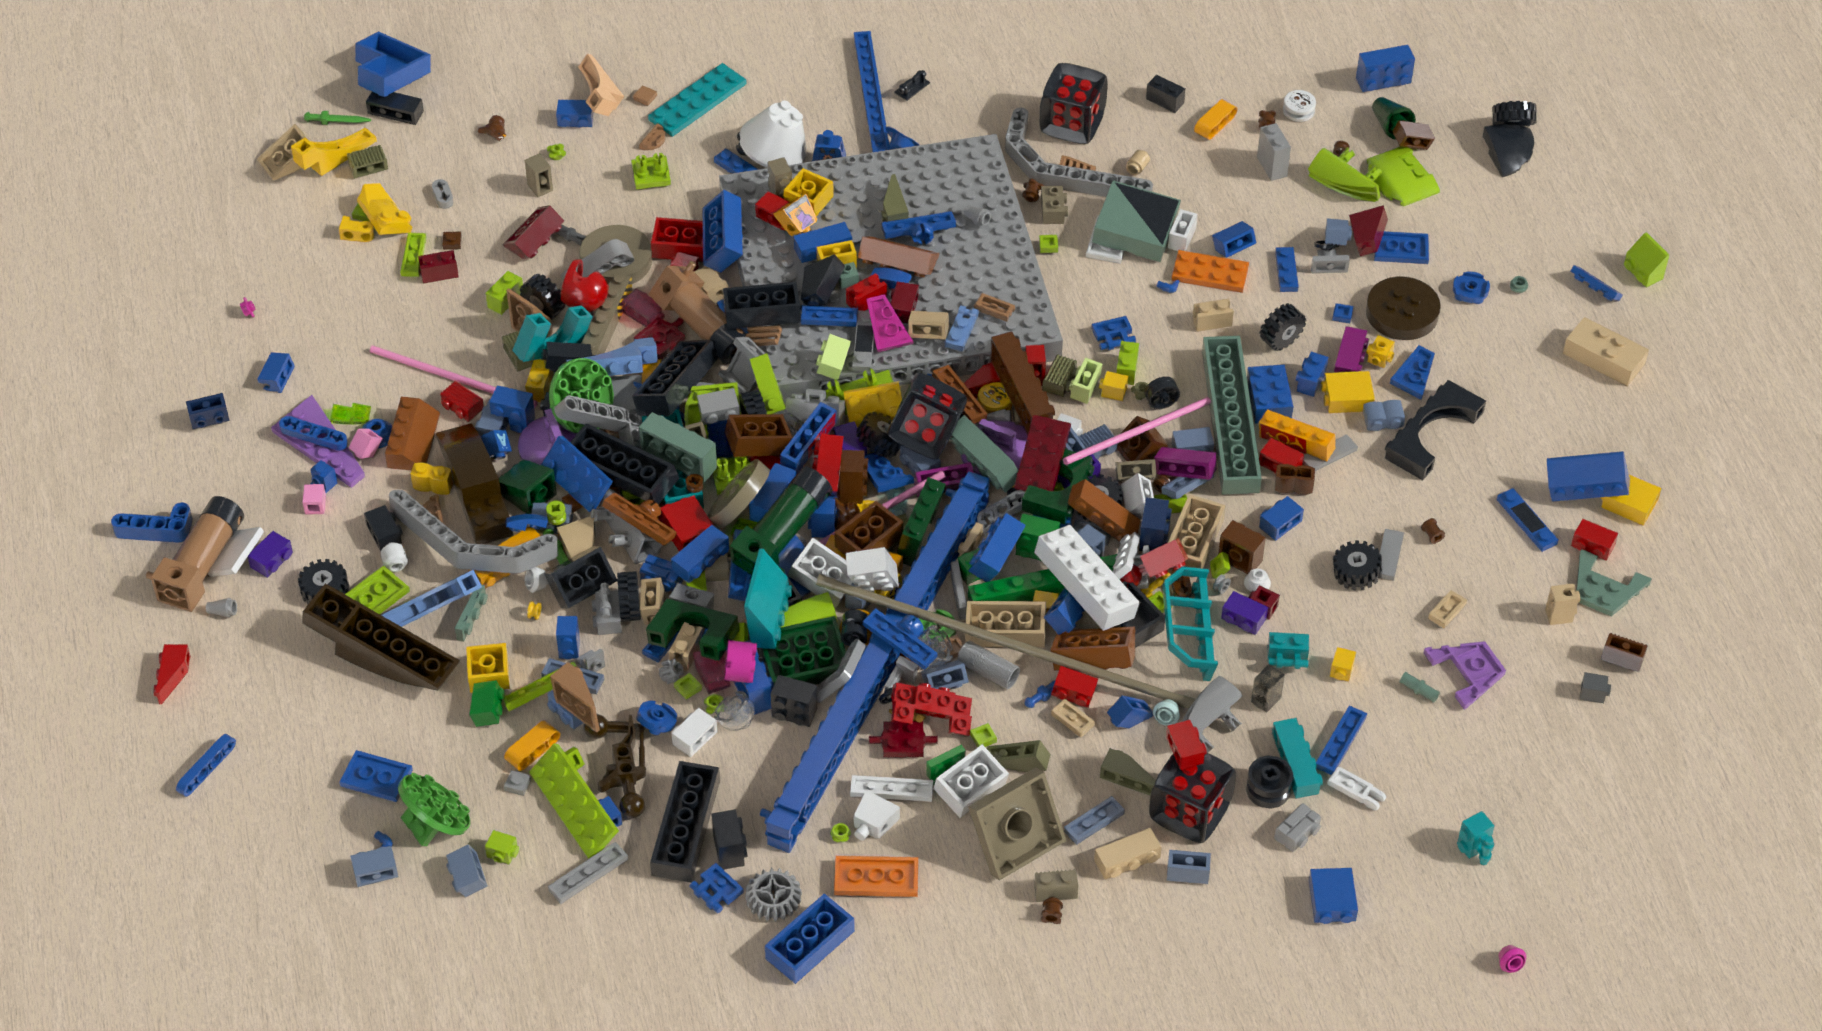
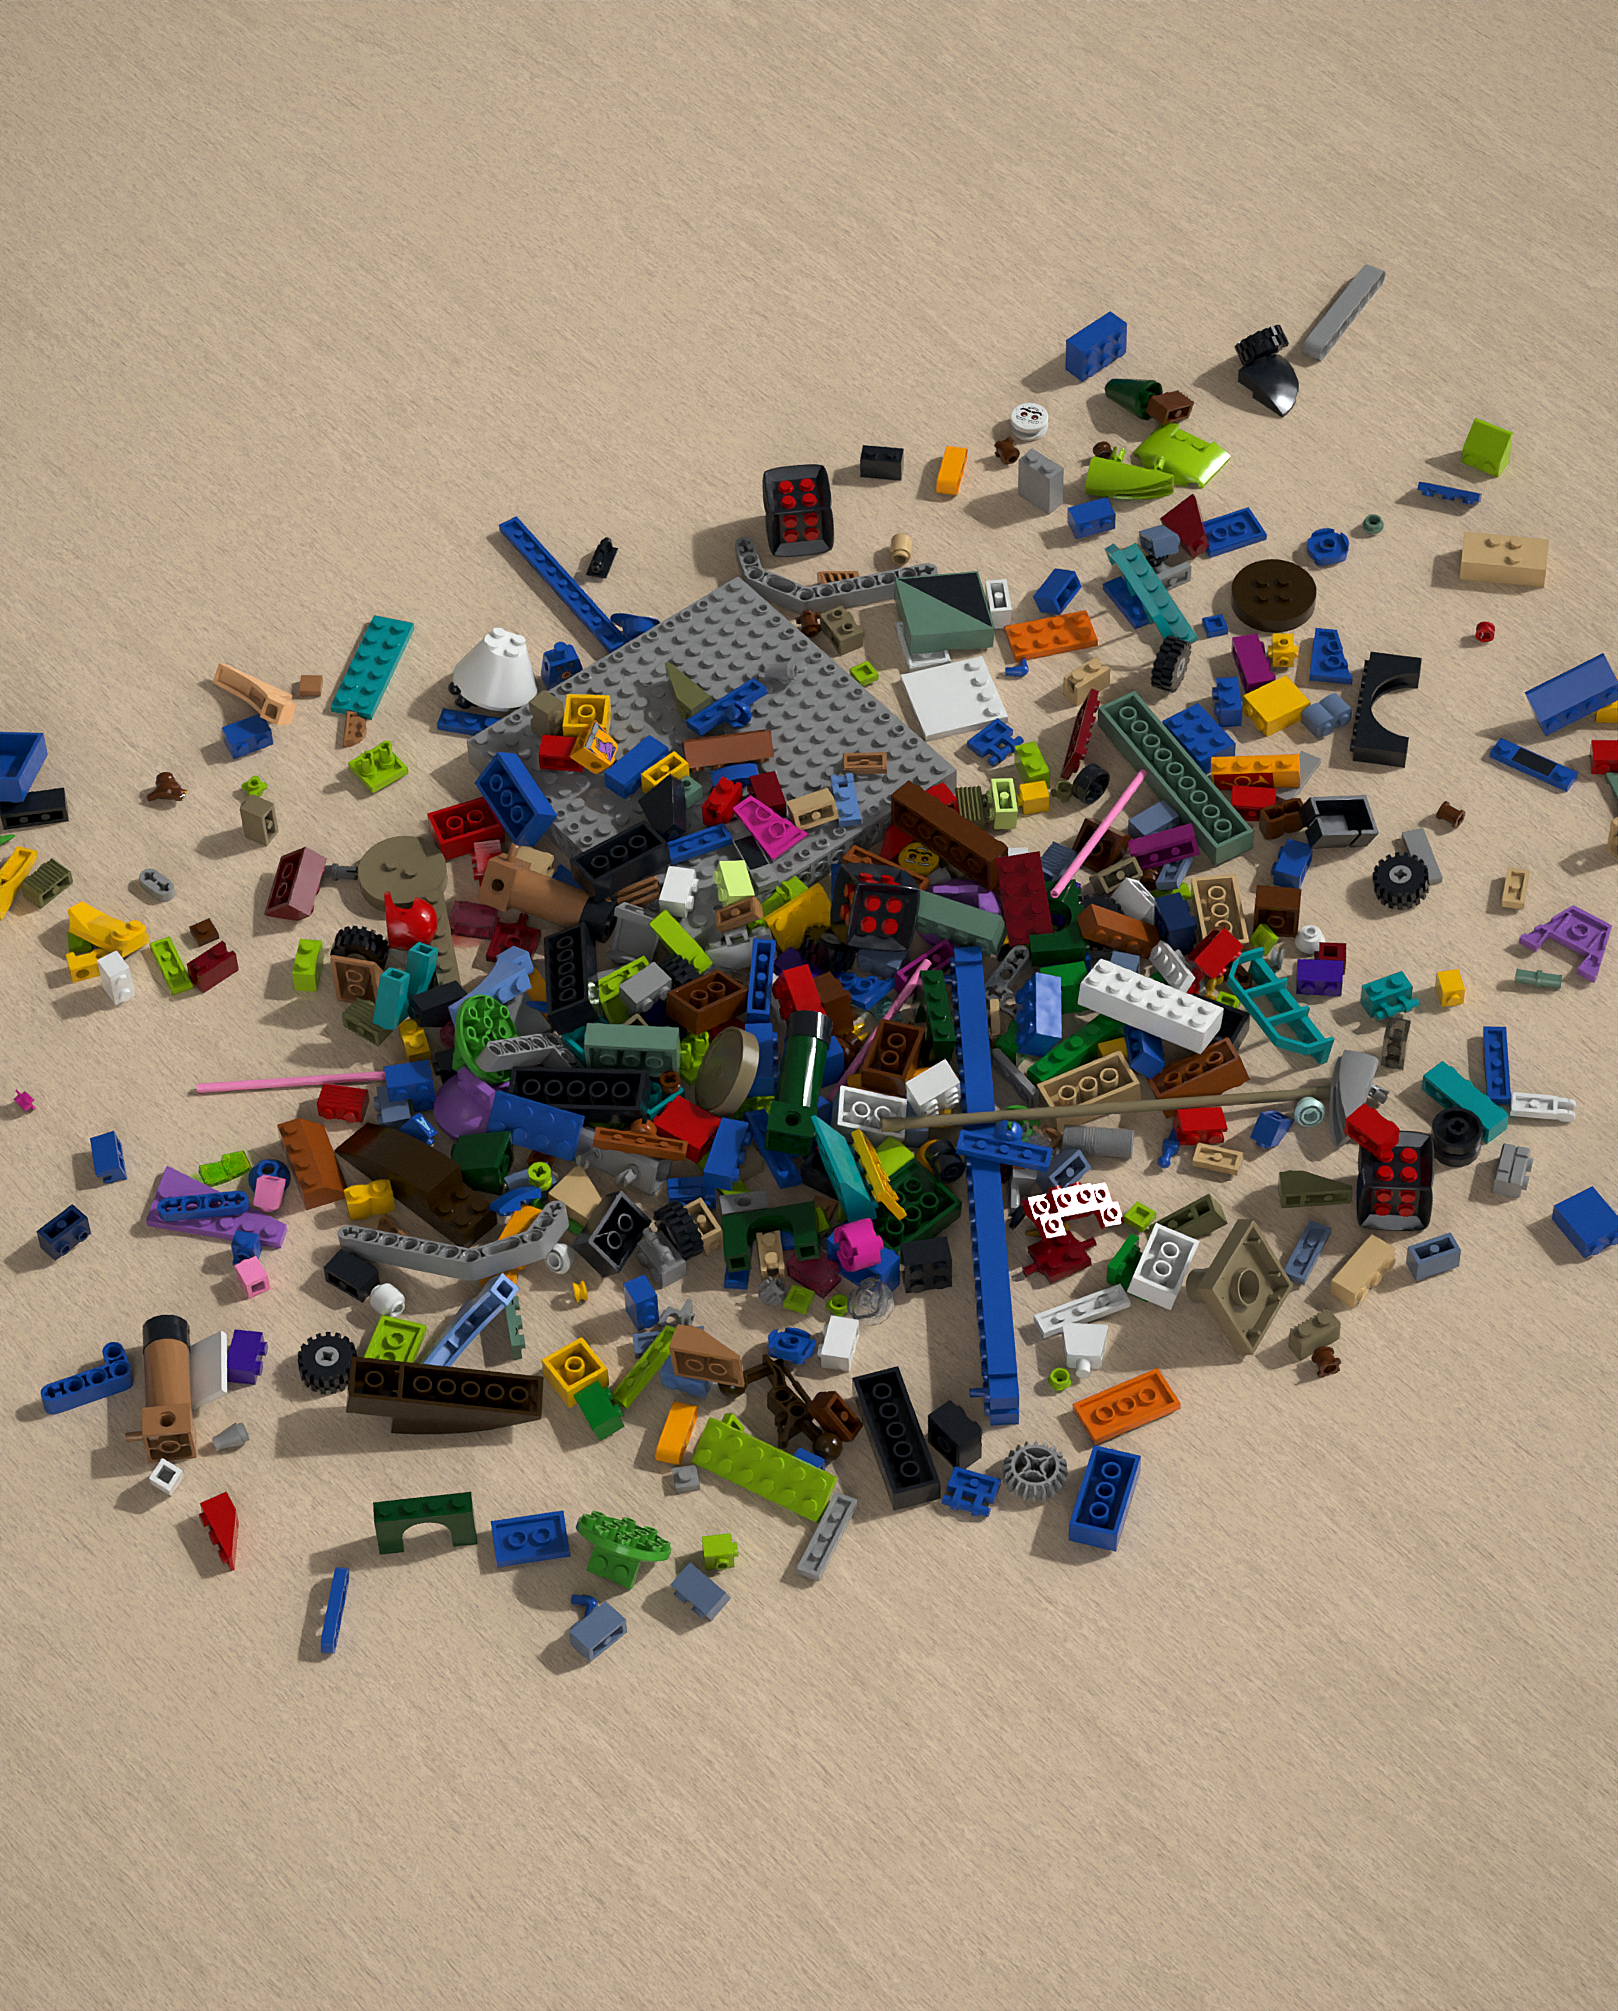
camera: 25 degrees left, 0 degrees up
(155, 615) = (166, 1477): none -> white brick
(282, 717) = (451, 1510): none -> dark green arch
(364, 246) = (116, 977): none -> white brick
(605, 257) = (401, 884): light grey beam -> none
(649, 784) = (835, 1415): none -> reddish brown brick
(790, 345) = (678, 891): none -> white brick
(792, 616) = (875, 1174): none -> yellow wing
(823, 380) = (738, 914): none -> medium nougat brick
(843, 673) = (966, 1209): light grey beam -> none
(1105, 288) = (953, 698): none -> white plate
(1180, 351) = (1081, 734): none -> dark red plate
(1297, 194) = (1091, 518): none -> blue brick
(1307, 267) = (1153, 595): none -> teal plate
(1333, 498) = (1338, 821): none -> black piece
(1554, 401) = (1485, 631): none -> red bush
(1601, 115) = (1343, 312): none -> light grey beam

